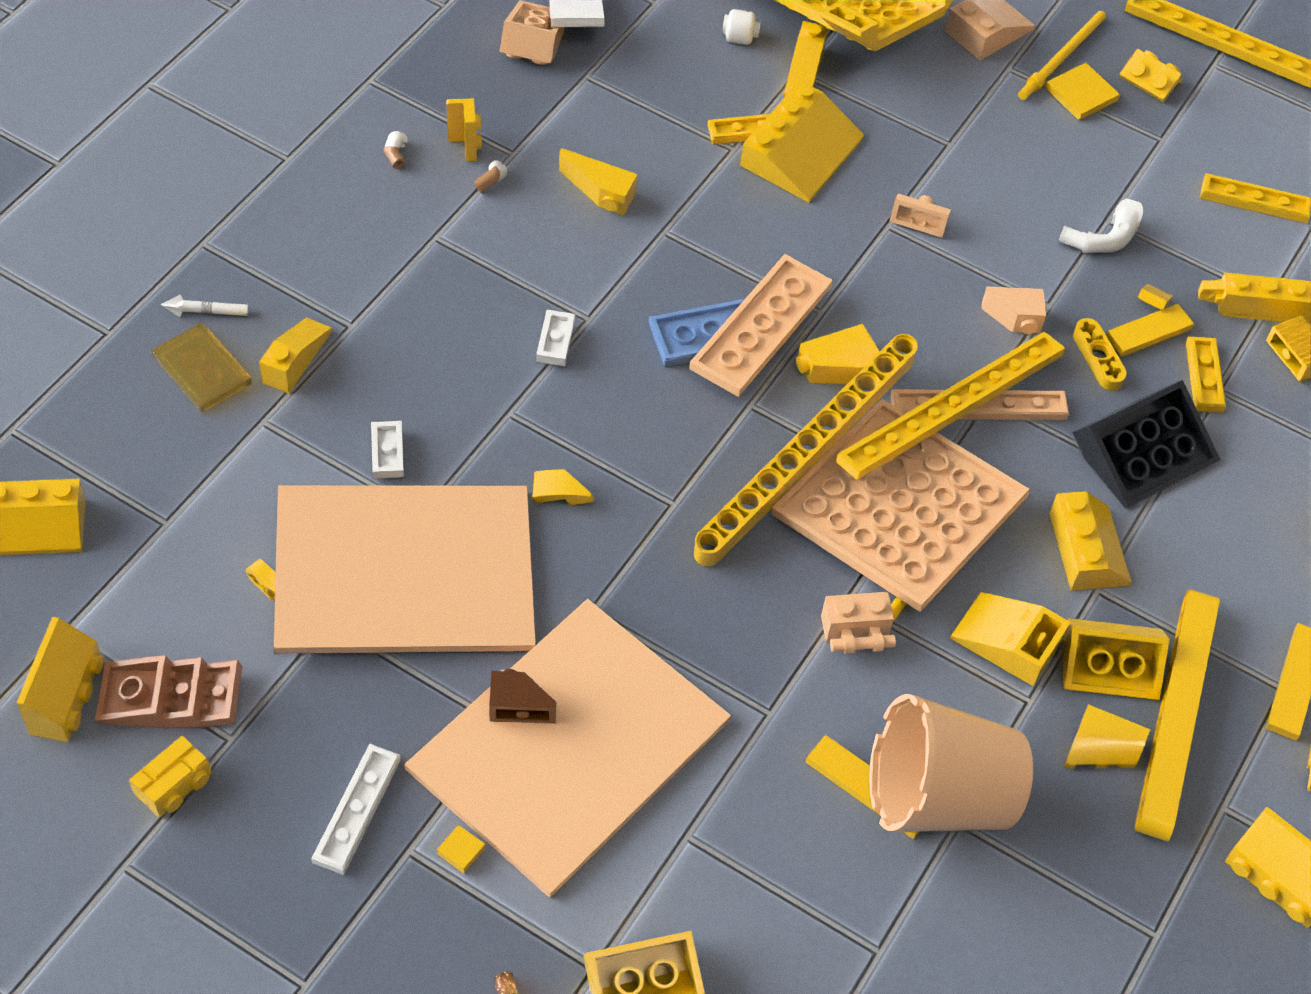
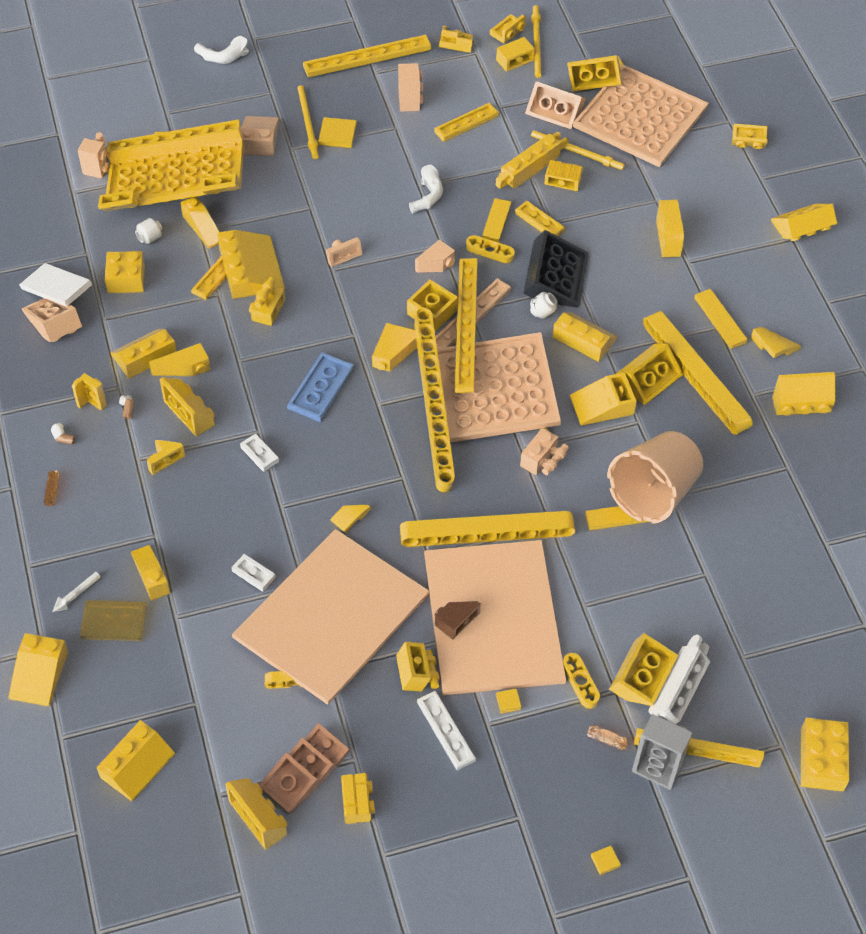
camera: 45 degrees left, 0 degrees up
(73, 343) = (37, 669): none -> yellow slope
(317, 189) = (51, 488): none -> clear orange axle
(405, 704) = (417, 667): none -> yellow brick
(460, 257) = (167, 454): none -> yellow slope
(545, 223) = (187, 405): none -> yellow slope
(576, 135) = (135, 356): none -> yellow slope
(582, 905) = (581, 689): none -> yellow beam
(661, 46) = (125, 272): none -> yellow brick
(689, 646) = (487, 528): none -> yellow beam
(760, 325) = (343, 363): light nougat plate -> none
(765, 196) = (267, 303): none -> yellow brick
(944, 351) = (436, 299): none -> yellow brick
(1077, 465) = (543, 305): none -> white head
(1106, 741) = (686, 409): yellow slope -> none
(1151, 75) = (358, 100): yellow bracket -> none
(1155, 296) = (482, 203): yellow tile -> none
(1225, 104) = (410, 87): none -> light nougat brick

